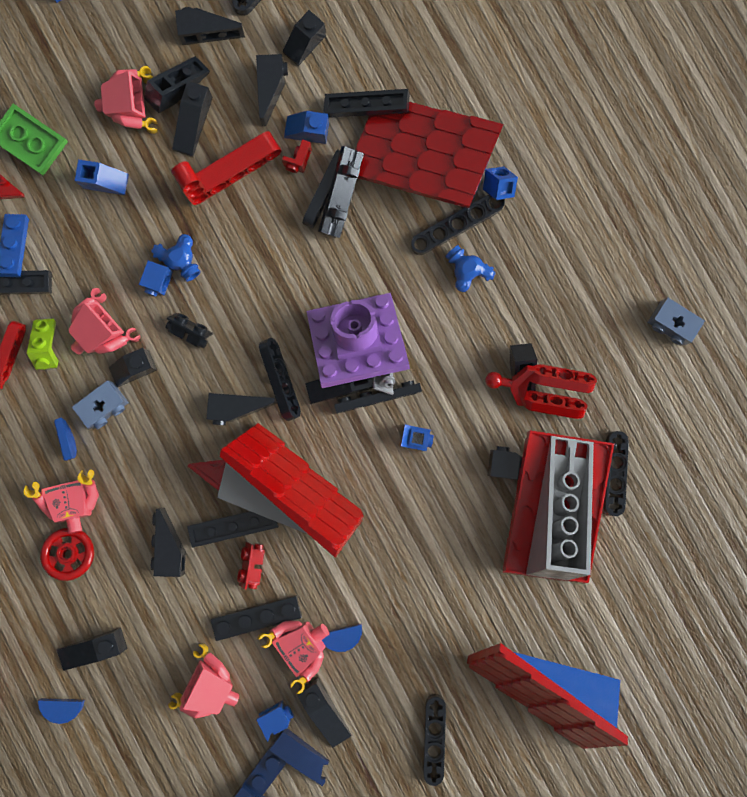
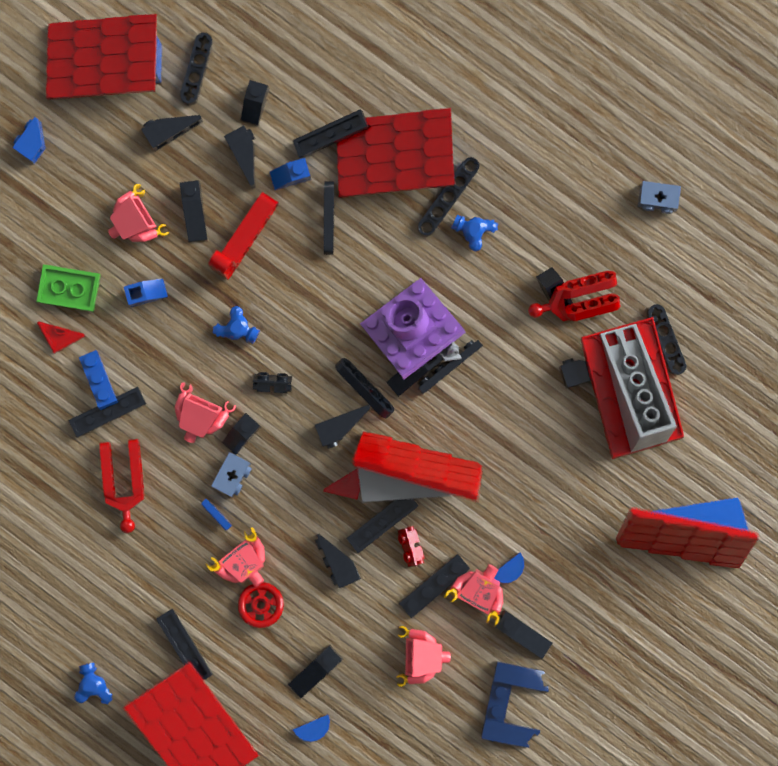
camera: 25 degrees left, 0 degrees up
(40, 344) = (161, 447): lime bracket -> none
(155, 279) = (227, 353): blue brick -> none
(168, 87) = (167, 187): black slope -> none
(274, 719) = (486, 656): blue window -> none
(301, 157) = (297, 199): red bracket -> none
(340, 192) = (344, 215): hinge -> none
(416, 438) = (495, 384): blue window -> none
(434, 739) = (616, 616): black beam -> none
(500, 183) = (468, 149): blue brick -> none

